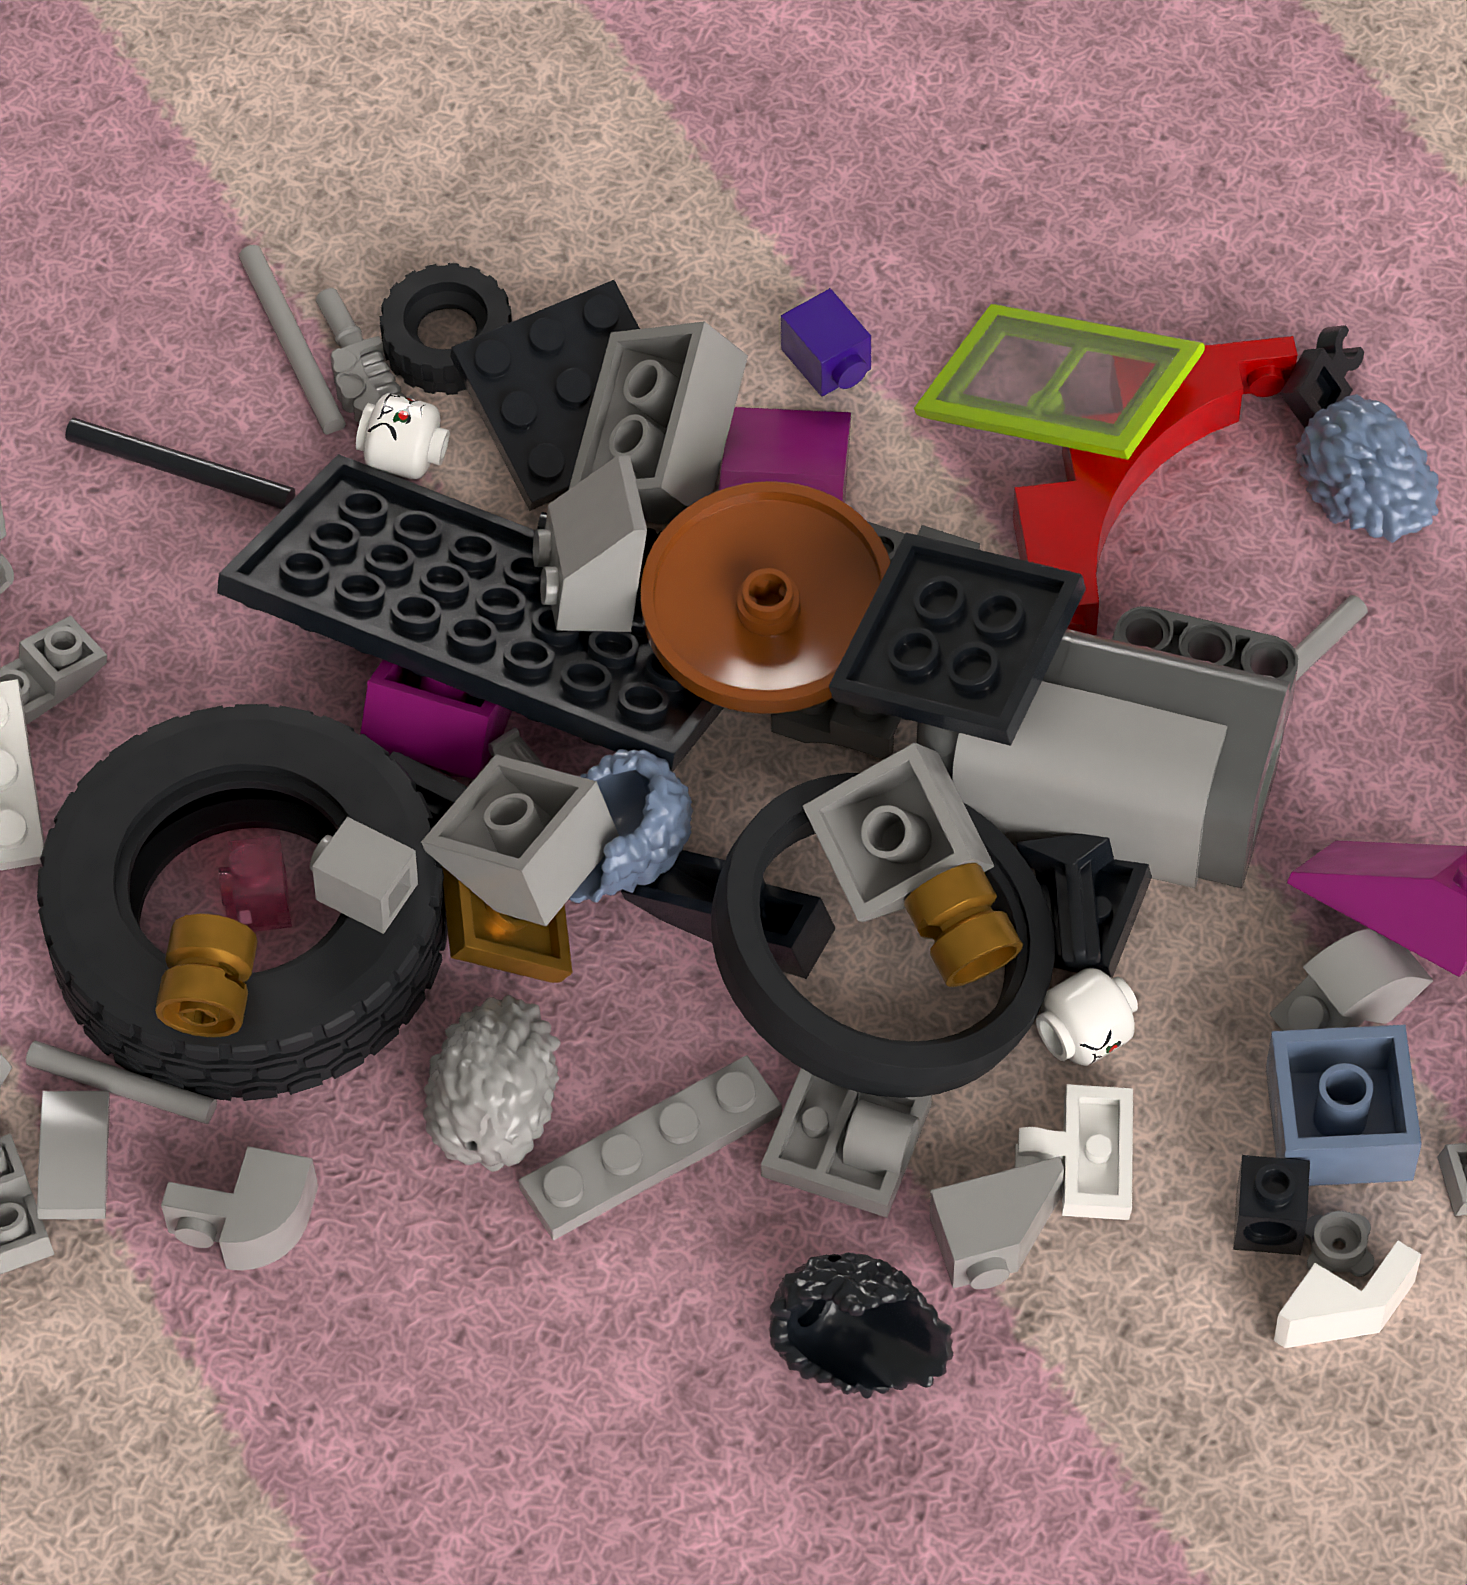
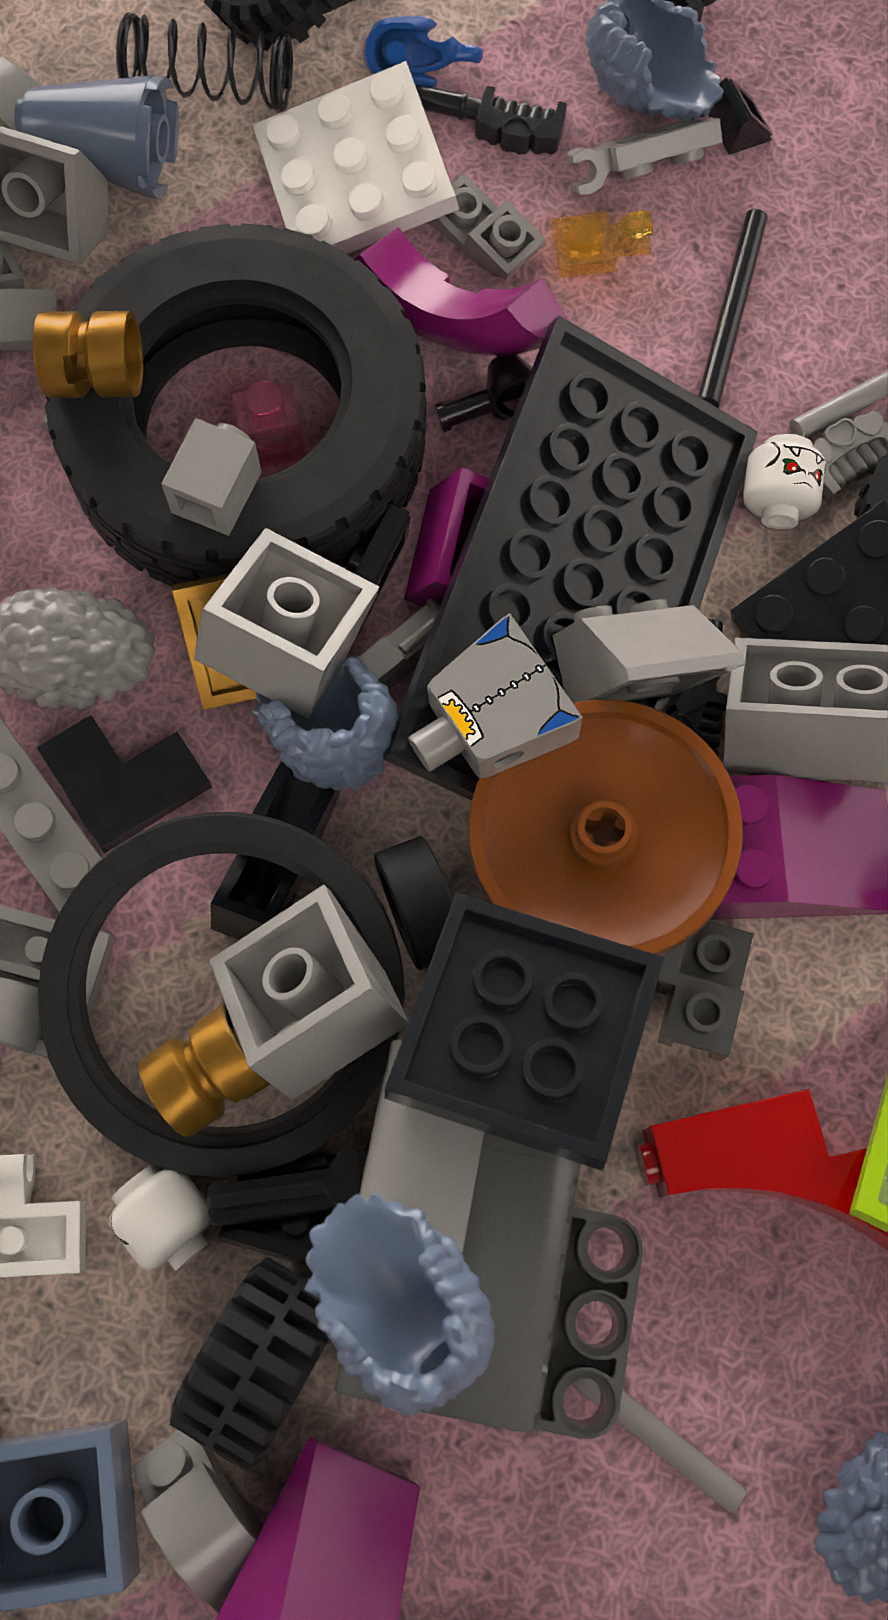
camera: 80 degrees right, 15 degrees up
(77, 580) = (590, 244): none -> clear yellow plate
(177, 675) = (471, 322): none -> magenta brick
(243, 667) = (504, 382): none -> black bar
(644, 651) = (496, 706): none -> light grey torso
(653, 1058) = (119, 797): none -> black tile
(801, 750) = (415, 895): none -> black tyre
(1182, 724) = (399, 1304): none -> sand blue piece
(1222, 920) = (251, 1366): none -> black tyre

